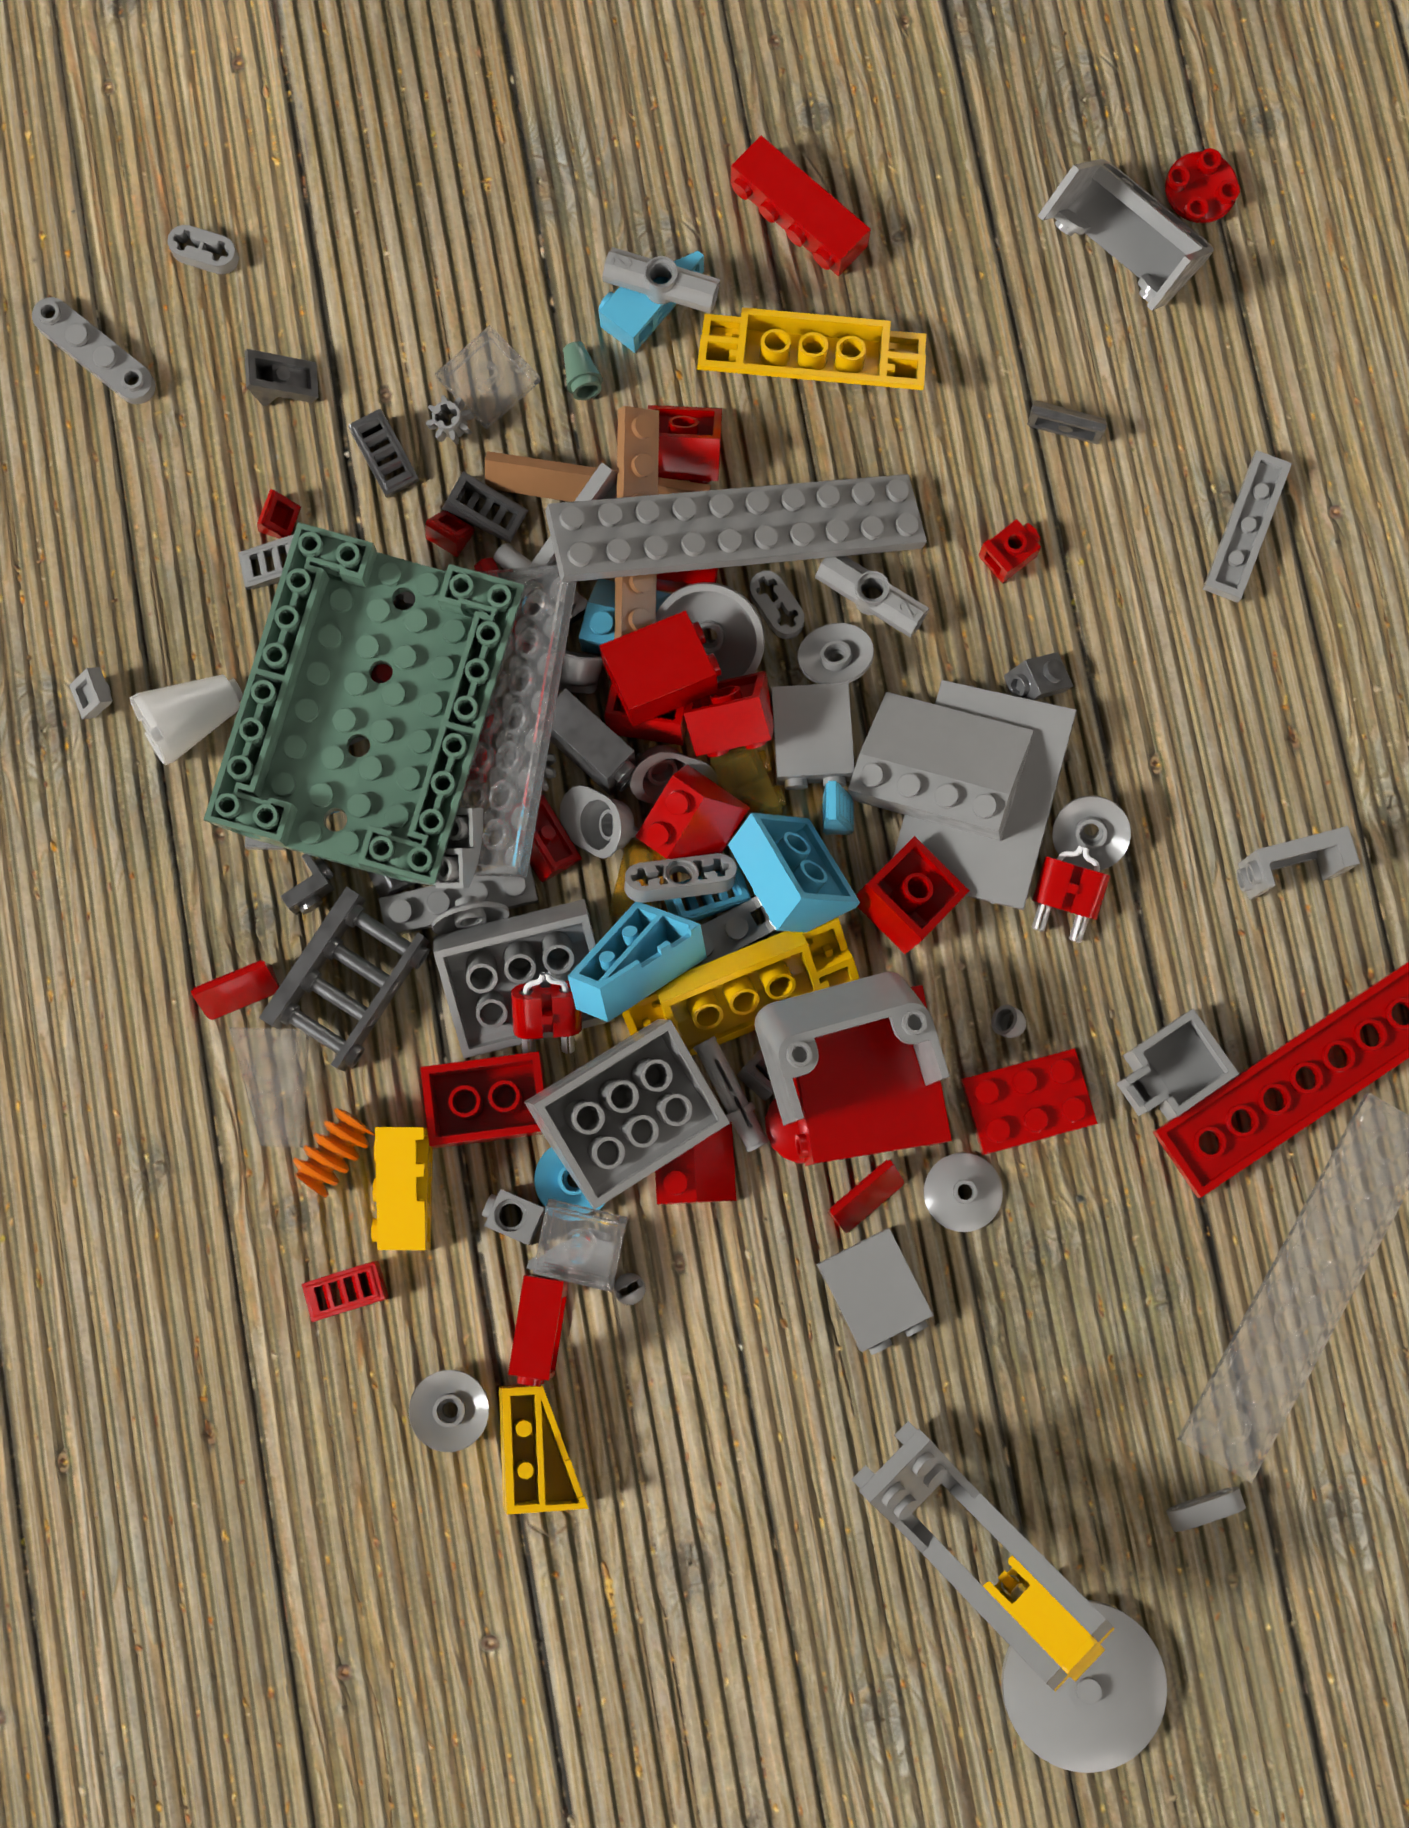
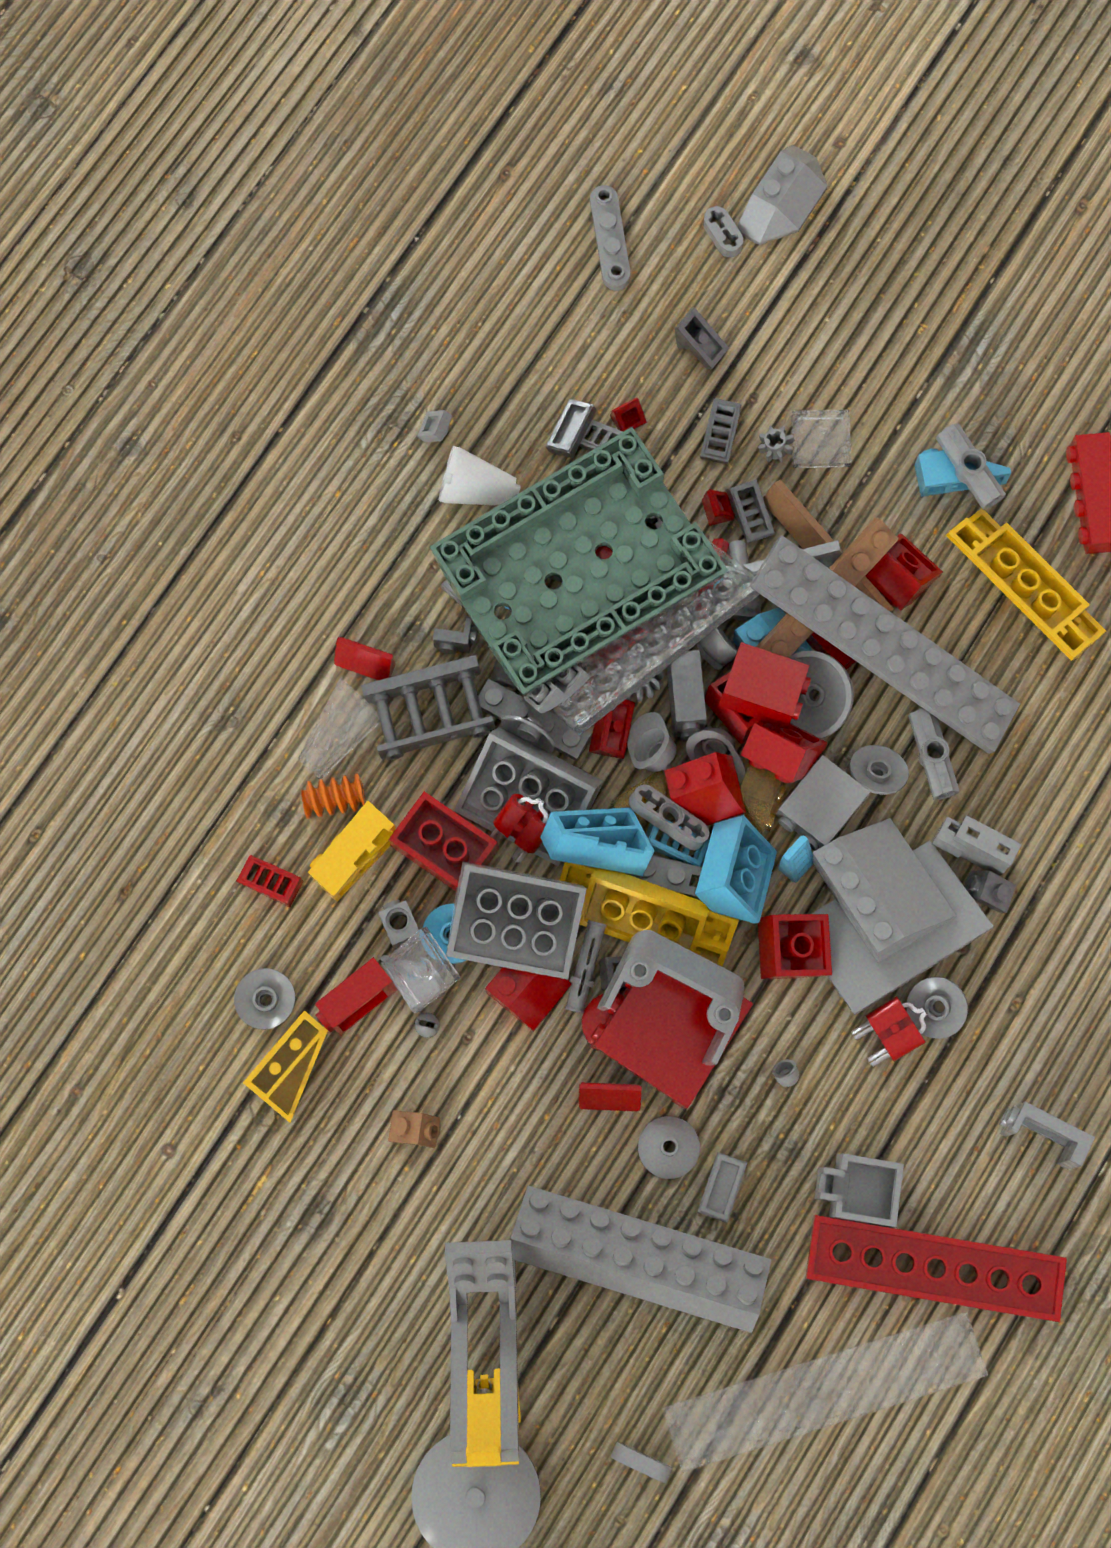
camera: 45 degrees right, 5 degrees down
(231, 577) = (571, 428): none -> flat silver tile
(233, 164) = (783, 197): none -> light grey wedge
(581, 372) = (877, 482): sand green cone -> none
(710, 1399) = (414, 1129): none -> medium nougat bracket
(783, 599) = (878, 712): light grey beam -> none
(876, 1291) = (564, 1154): light grey panel -> none
(1002, 648) = (977, 850): none -> light grey piece
(1005, 560) = (1034, 807): red brick -> none
(1028, 1101) = (756, 1130): red plate -> none
(1035, 1324) = (640, 1259): none -> light grey brick
(1046, 1184) = (722, 1187): none -> light grey tile

